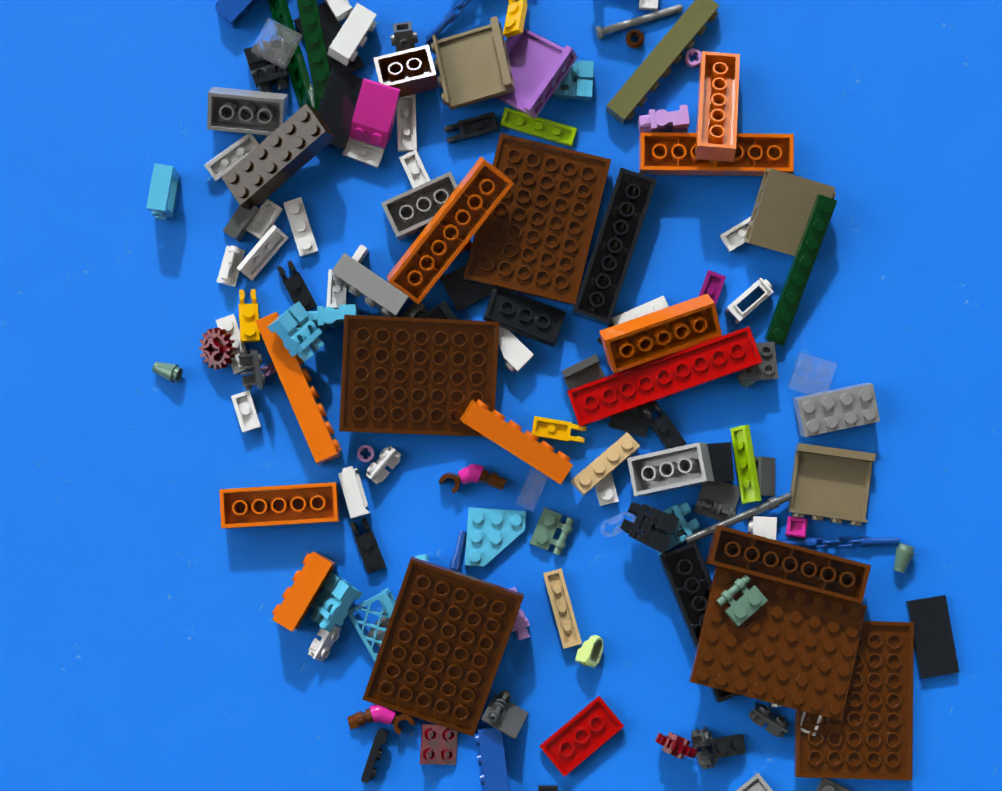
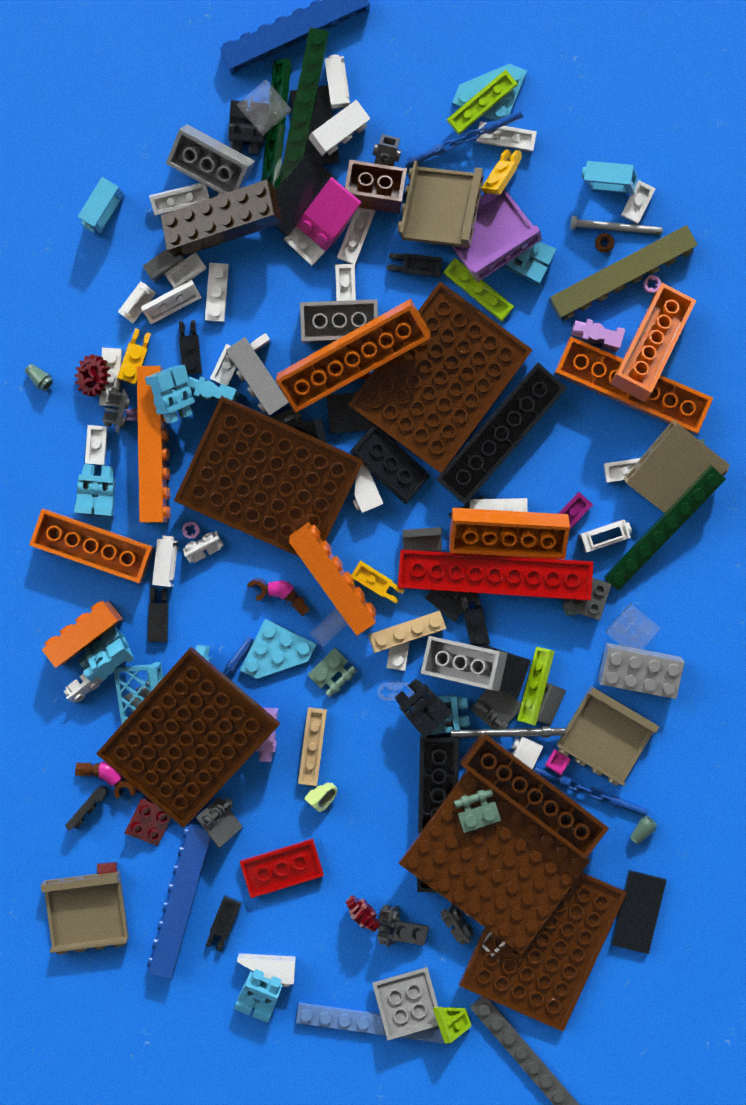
camera: 25 degrees right, 5 degrees up
(260, 449) = (101, 486): none -> medium azure hips

